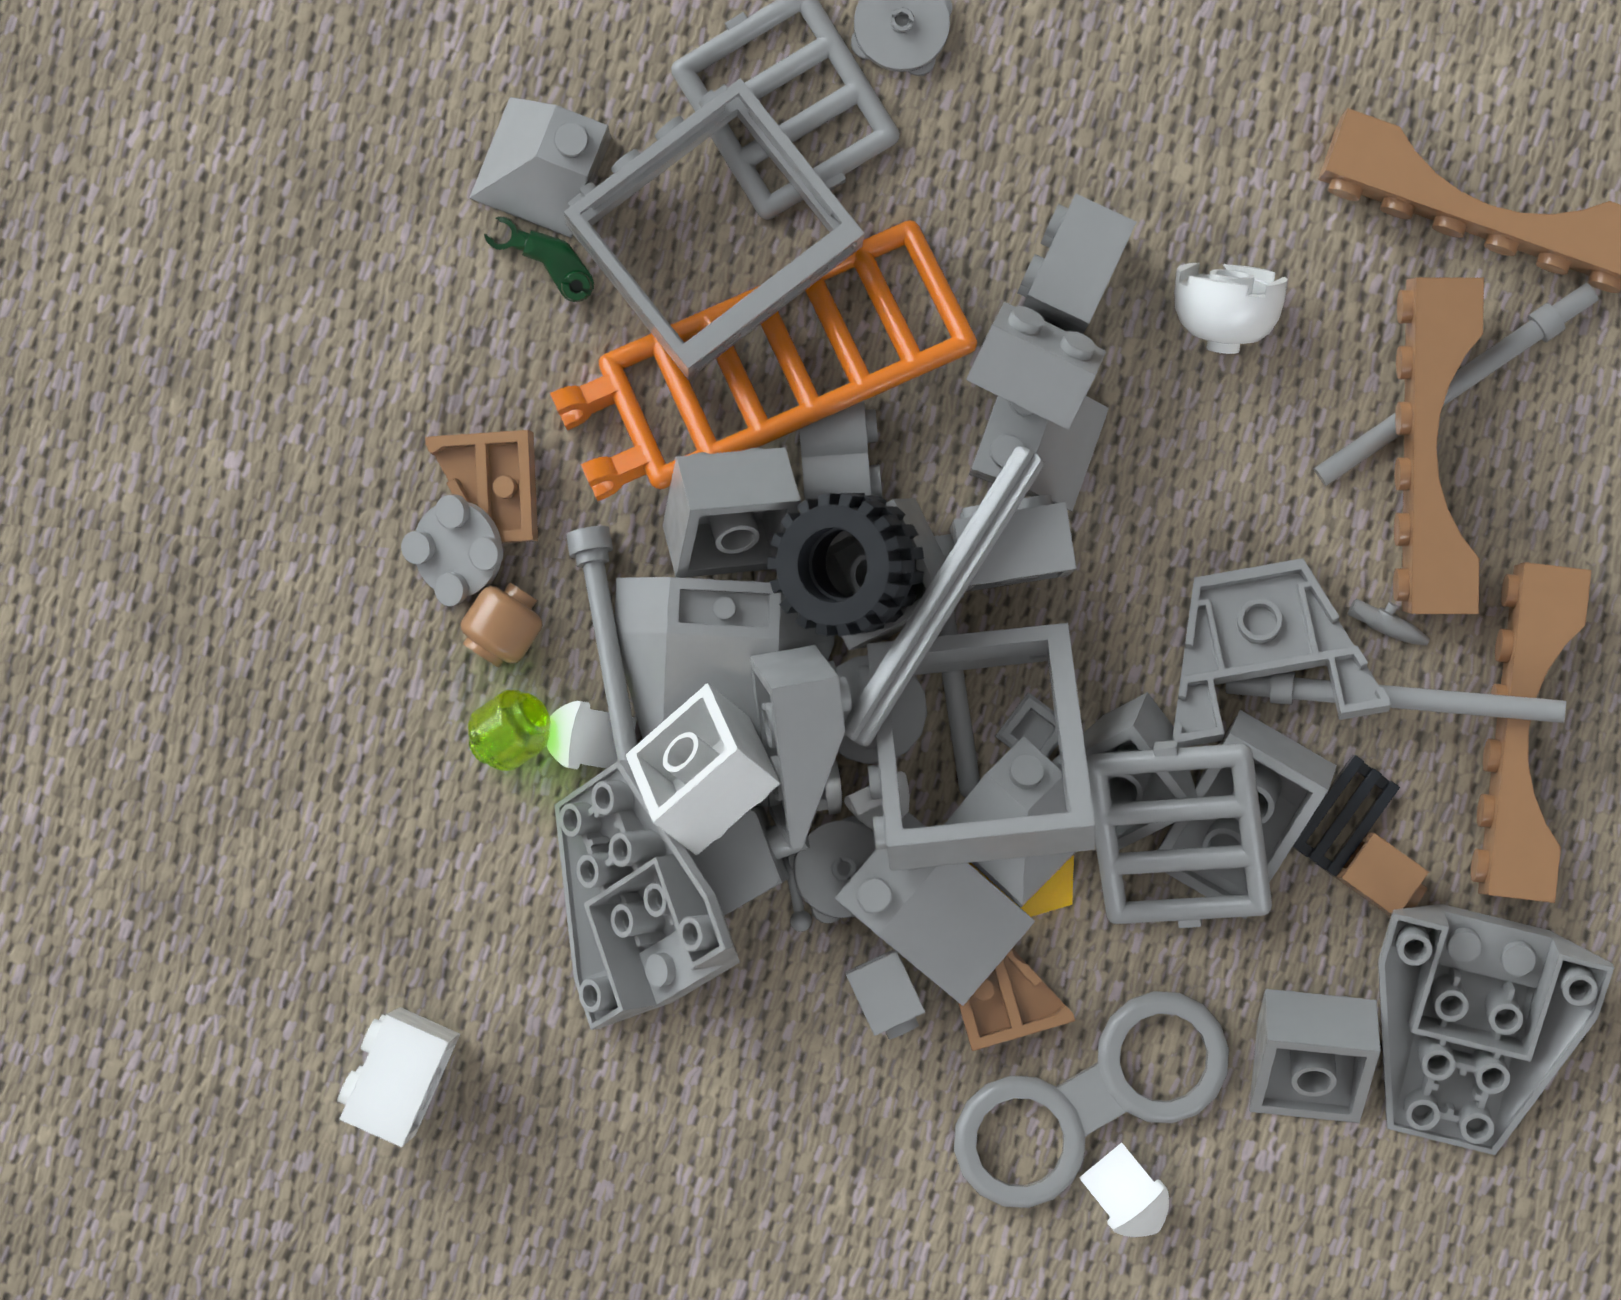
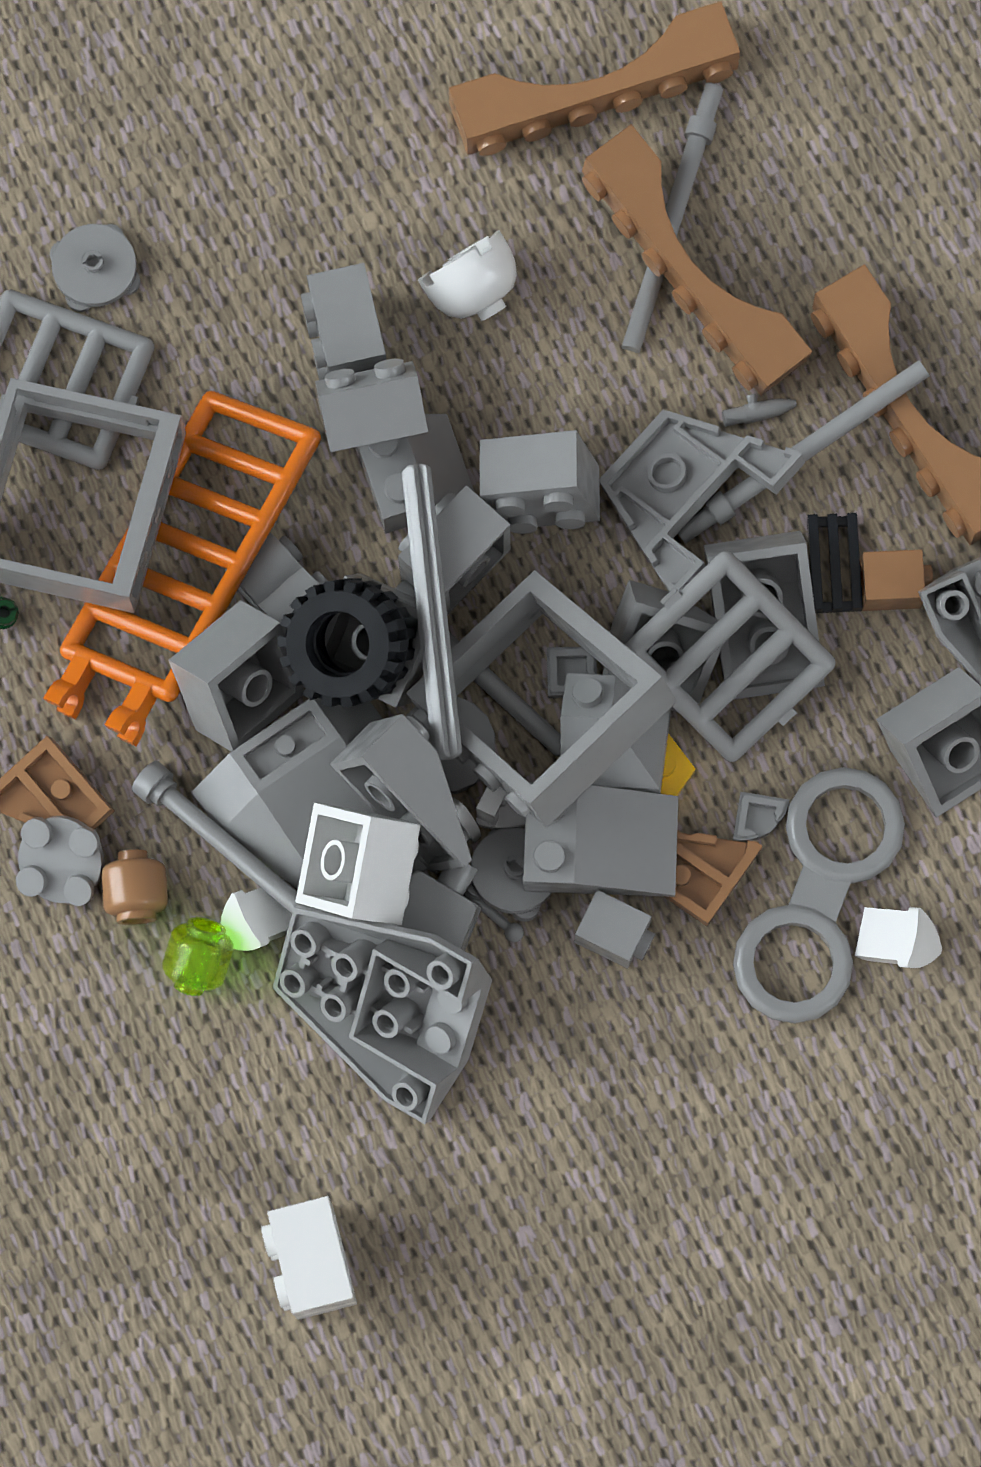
camera: 40 degrees left, 10 degrees down
(1093, 987) = (758, 816): none -> light grey tile
(1137, 544) = (540, 480): none -> light grey brick

